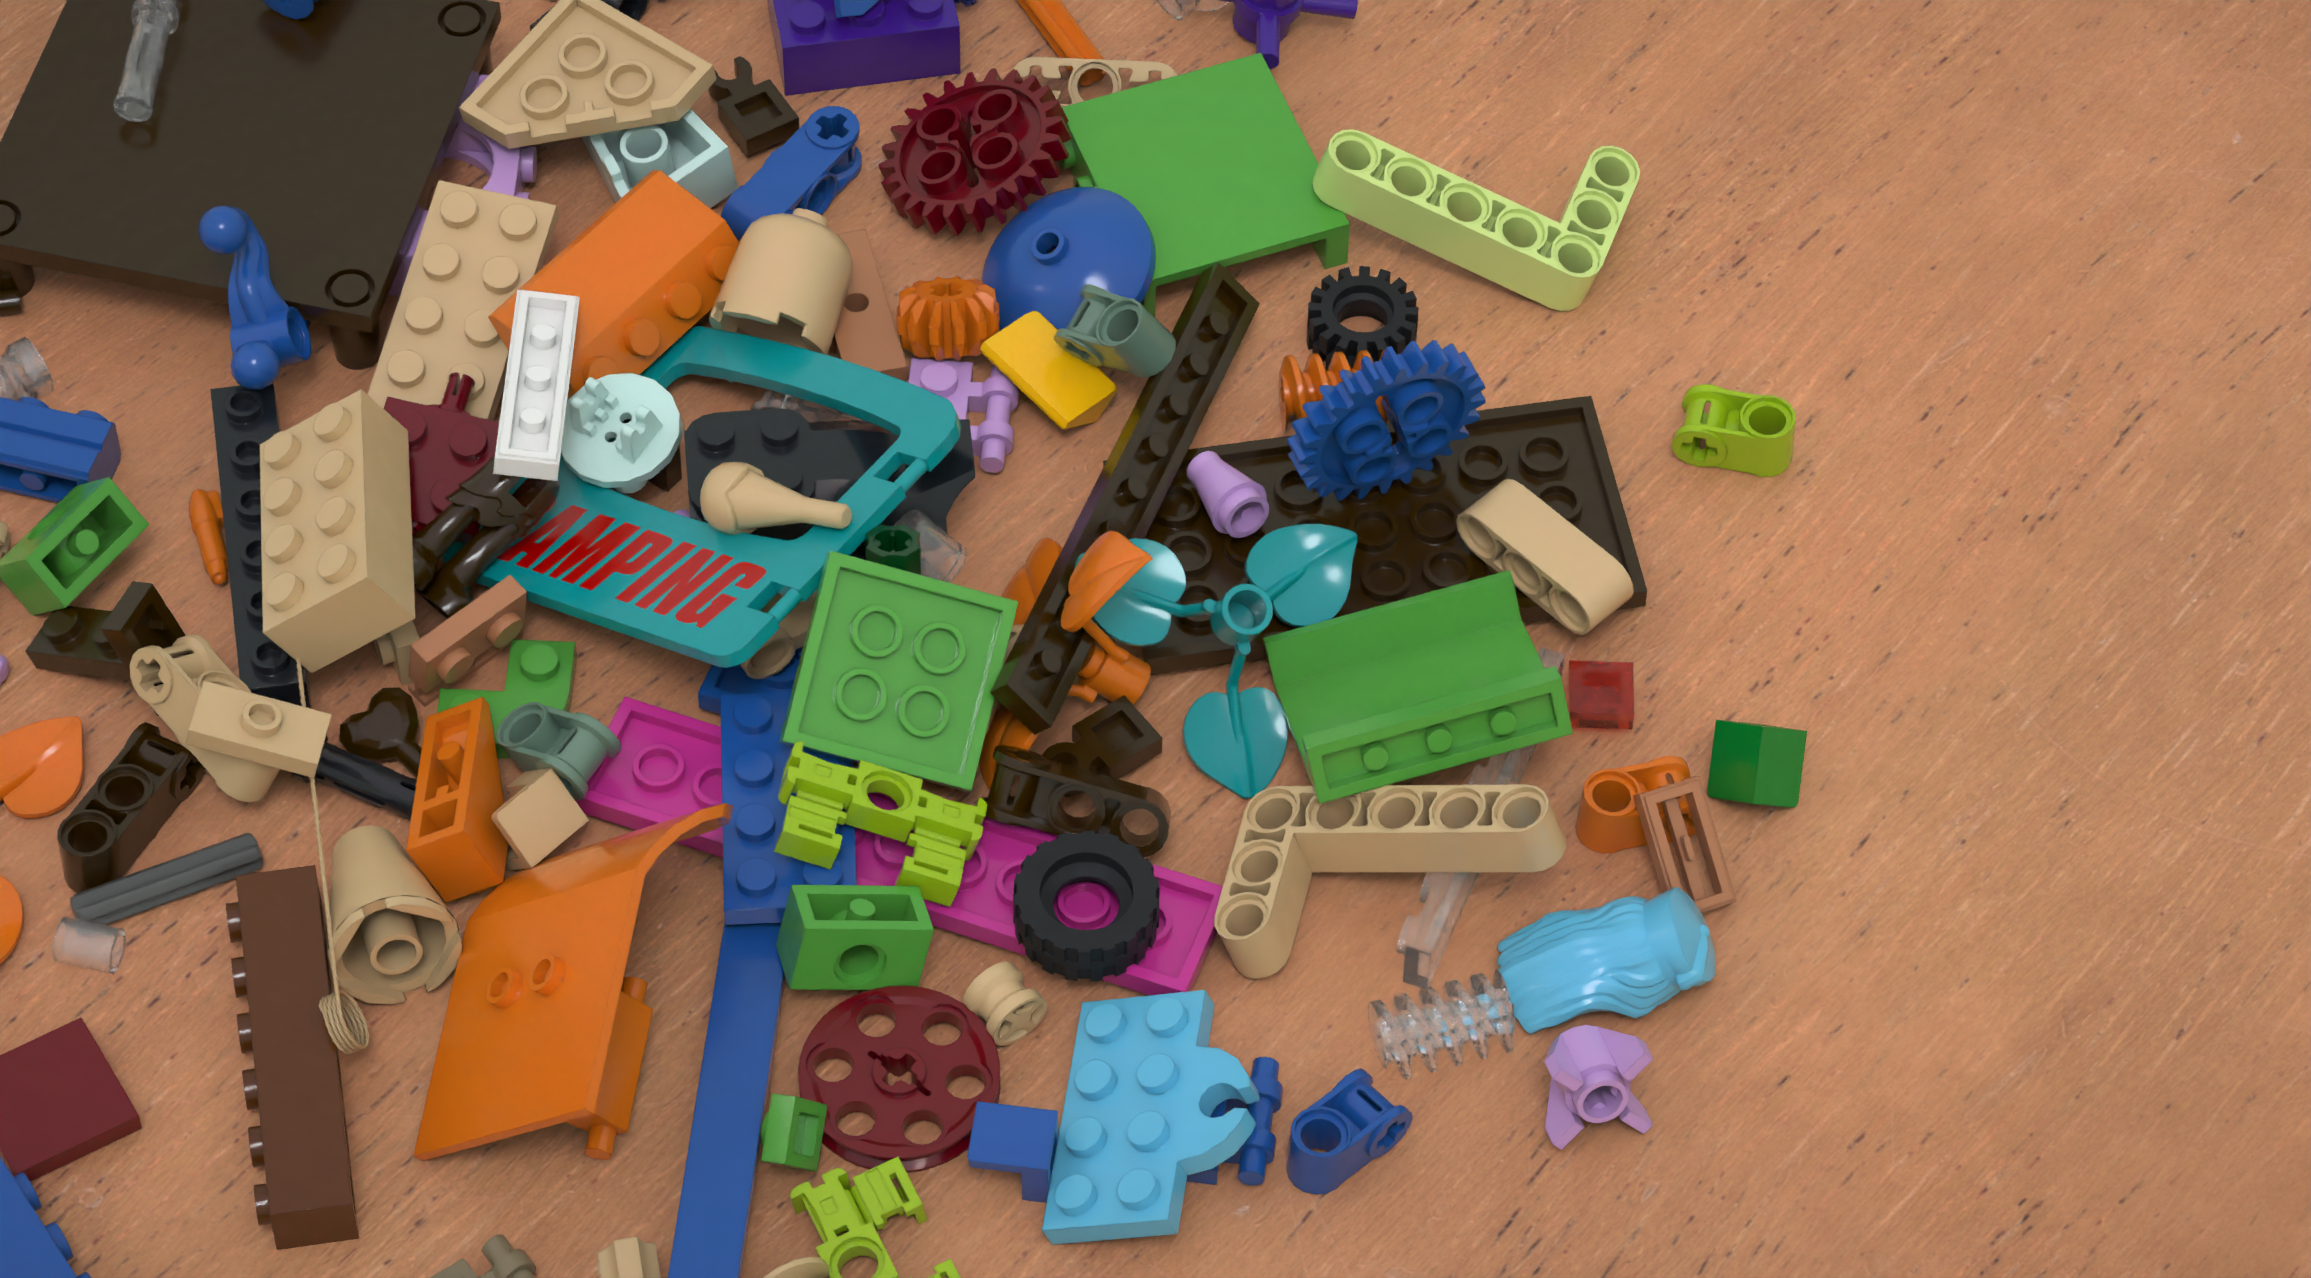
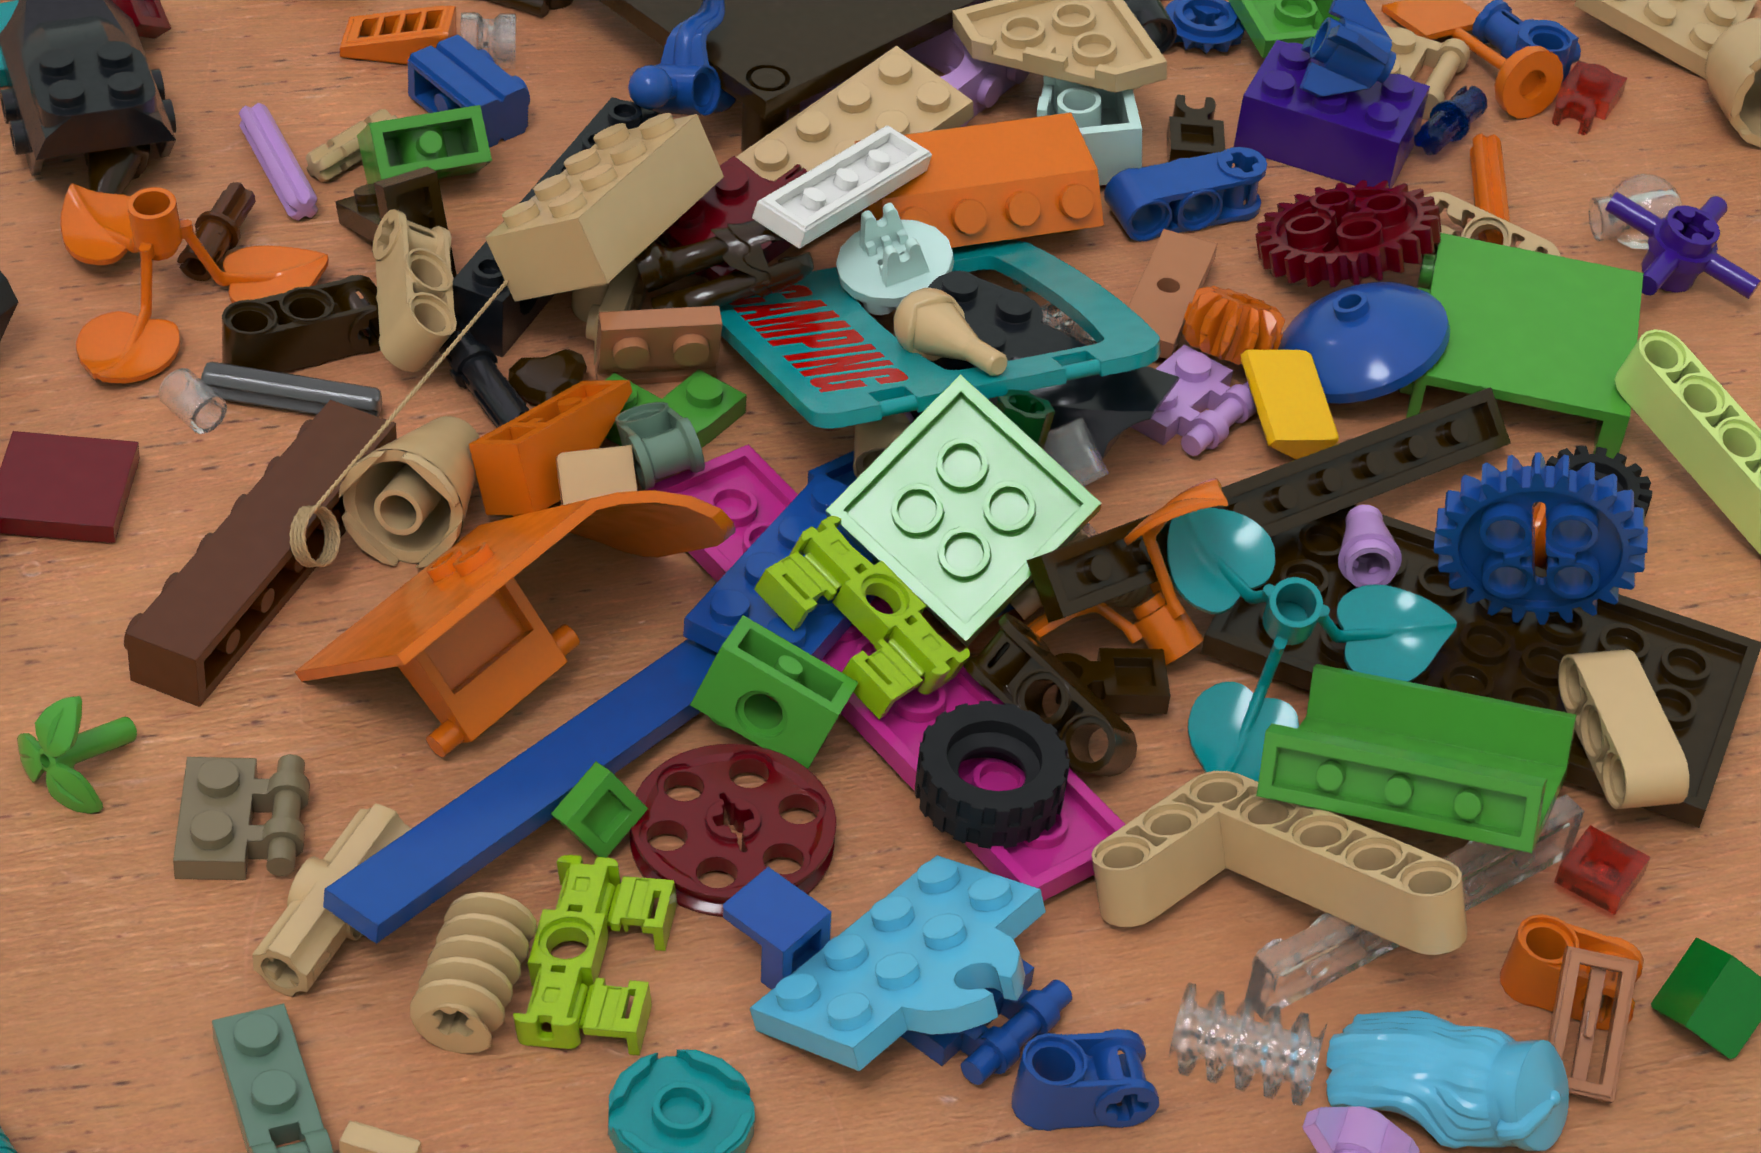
camera: 30 degrees right, 10 degrees down
(258, 729) = (424, 299): tan plate -> none
(786, 282) = (1114, 230): tan cylinder -> none
(1005, 1003) = (867, 818): tan wheel -> none
(1116, 334) = (1357, 386): sand green piece -> none

